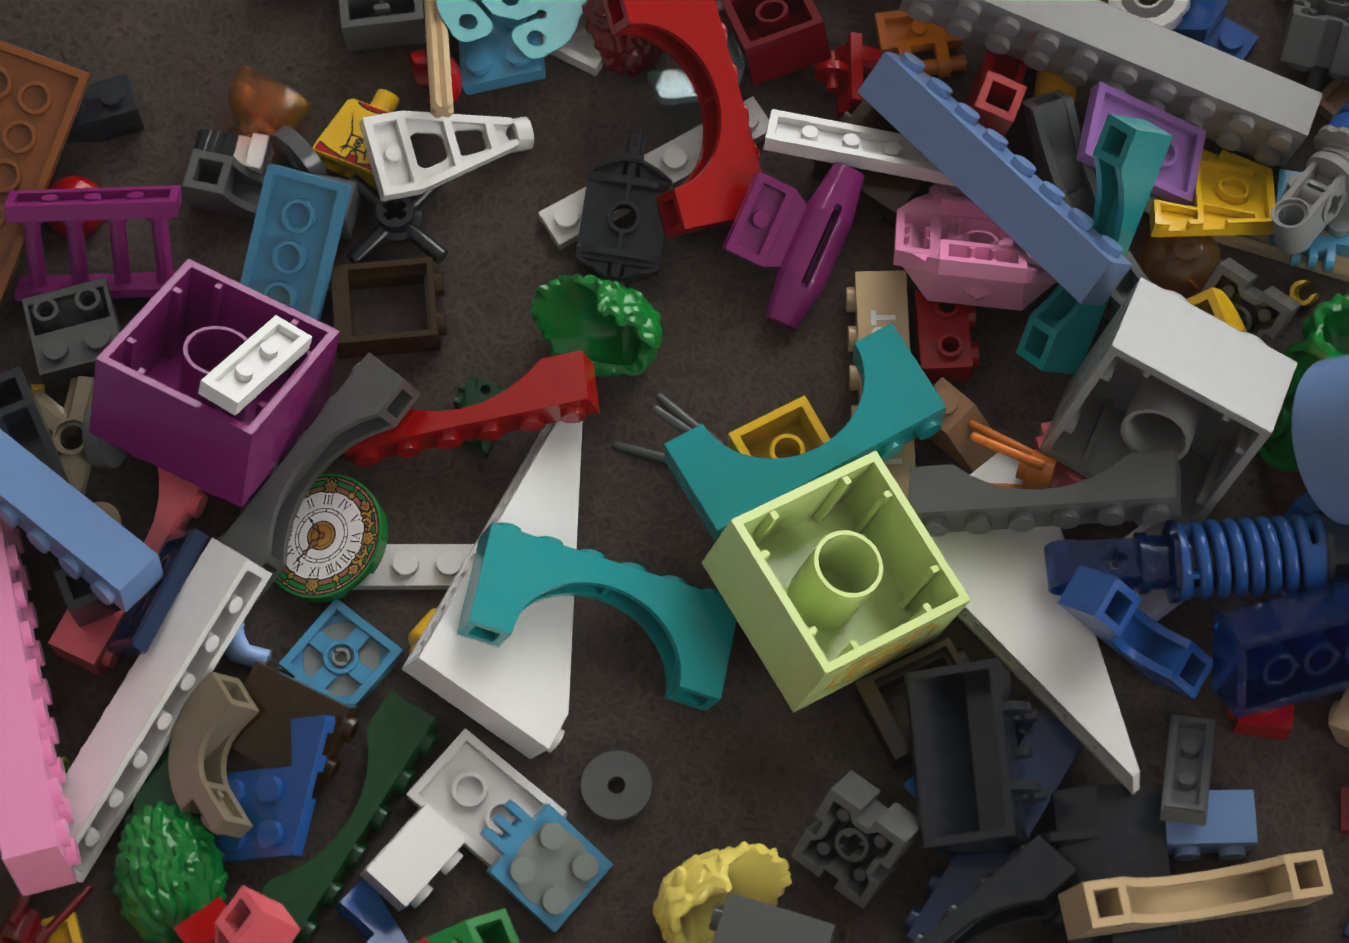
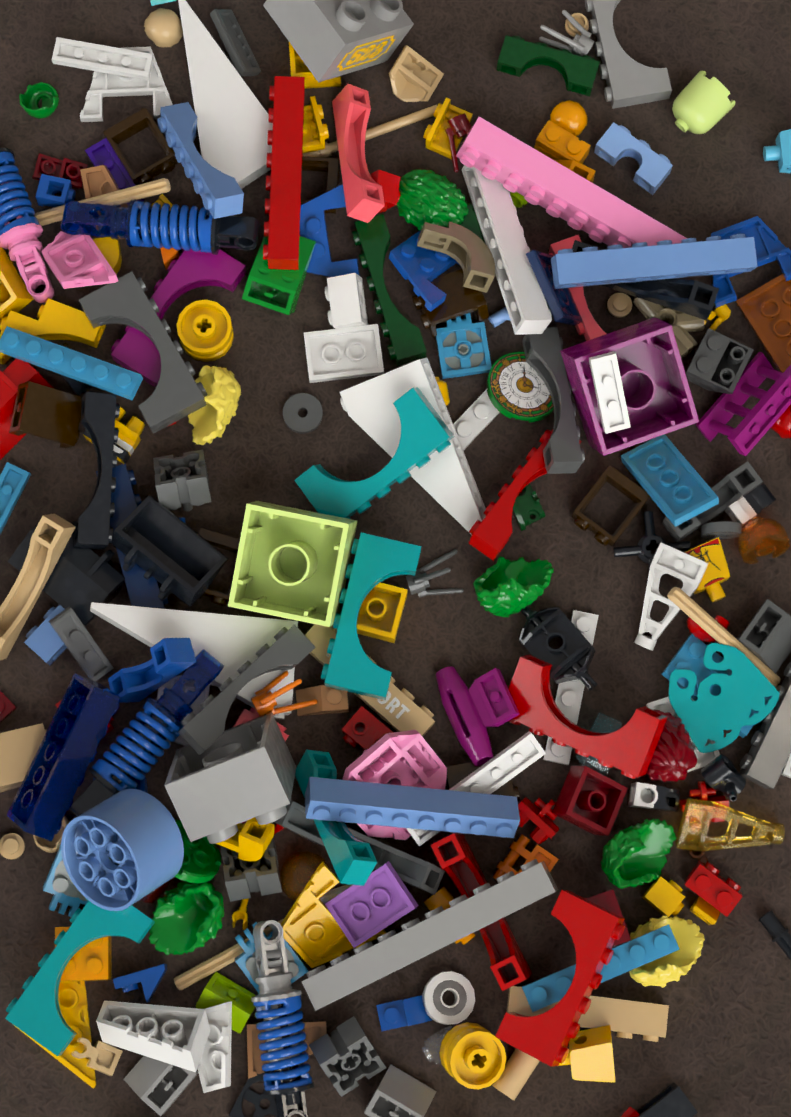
camera: 130 degrees right, 10 degrees up
(544, 863) = (296, 352): piece -> none

